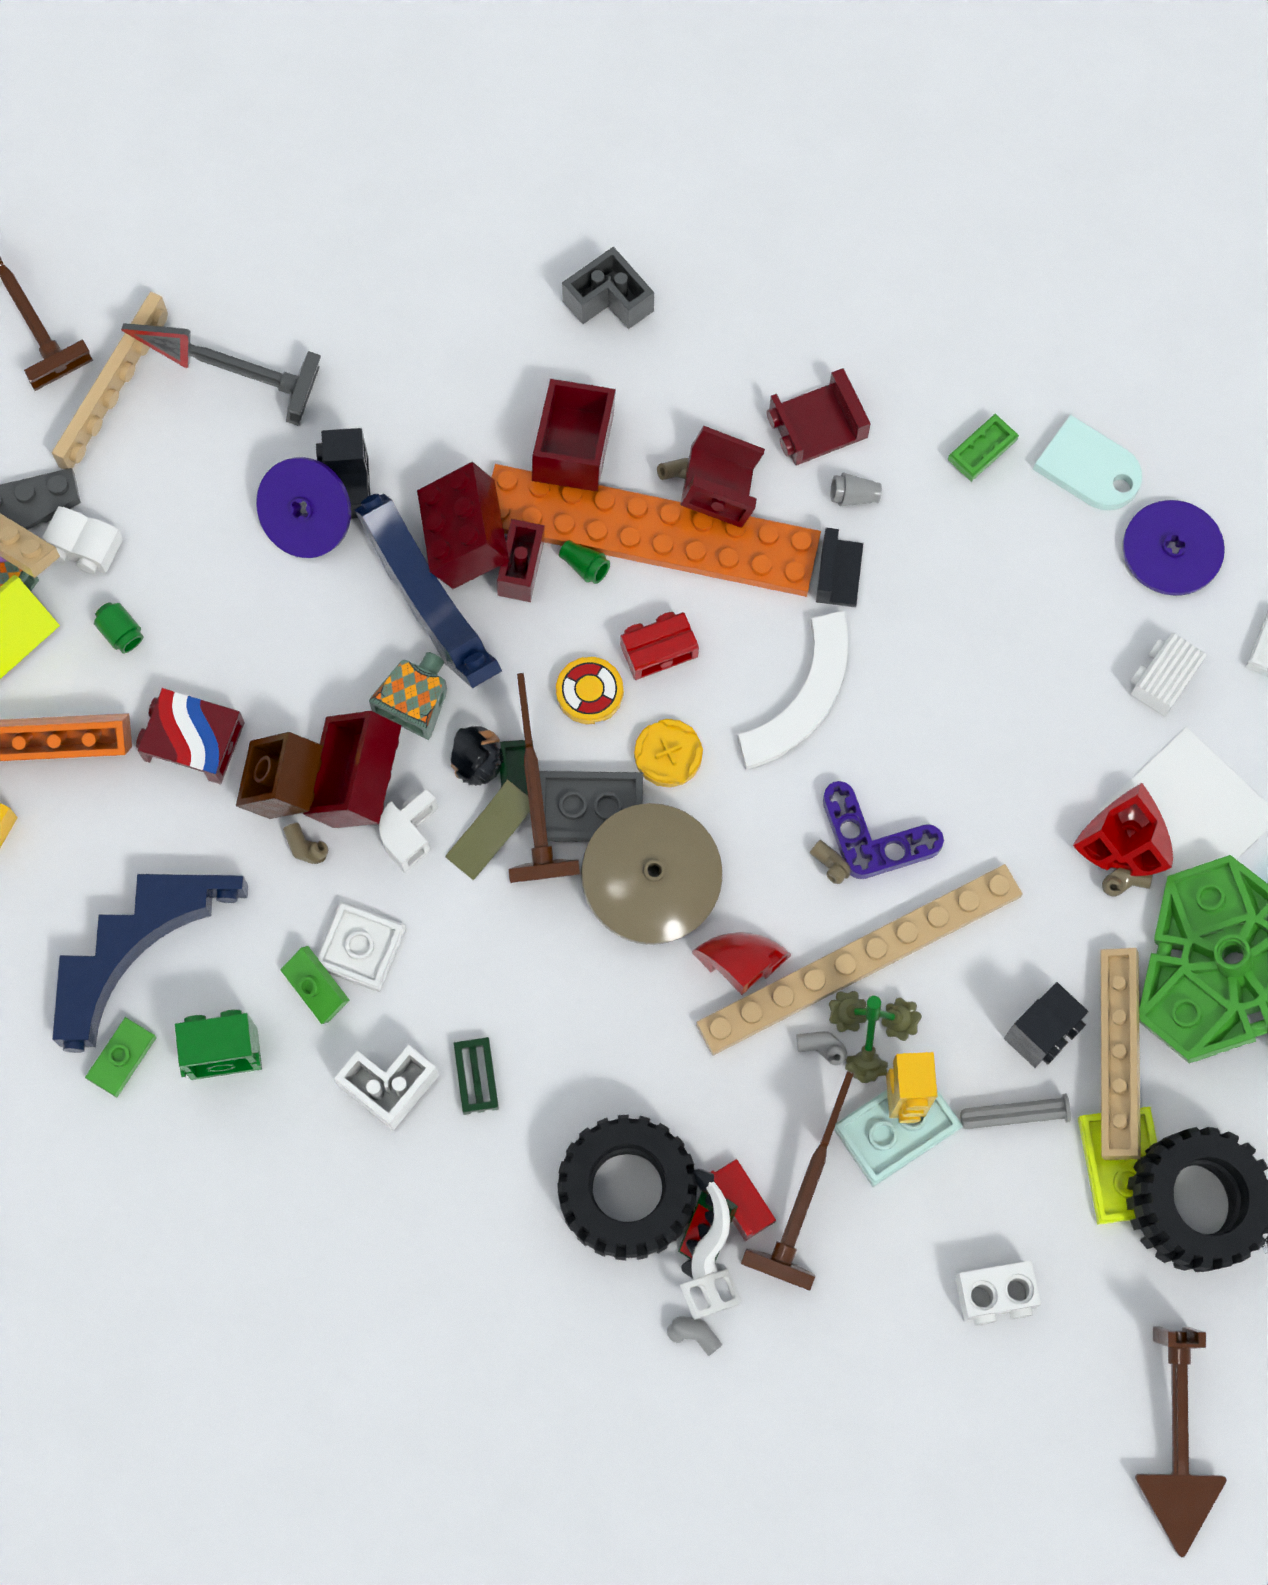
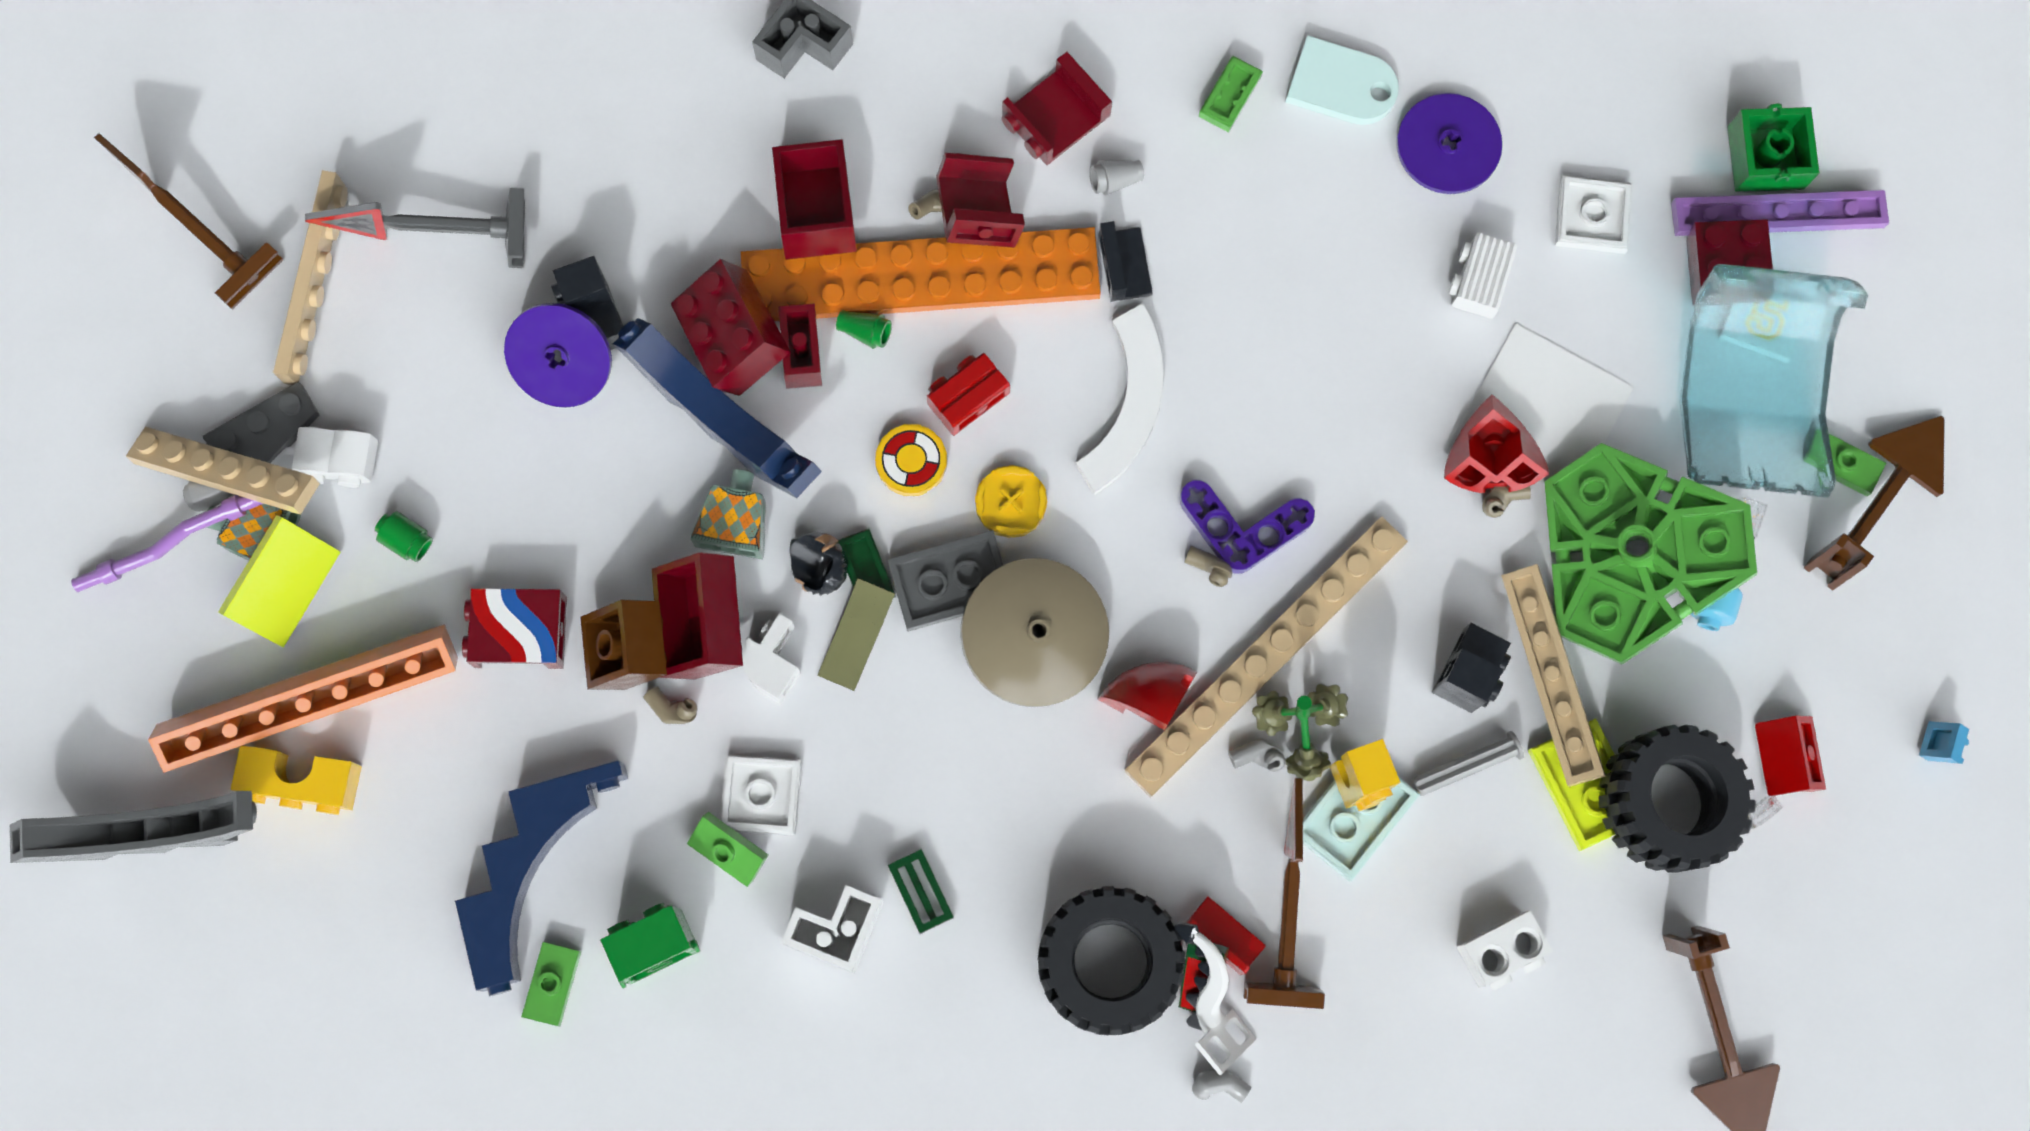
camera: 20 degrees left, 5 degrees up
(542, 854) = (922, 656): reddish brown piece -> none

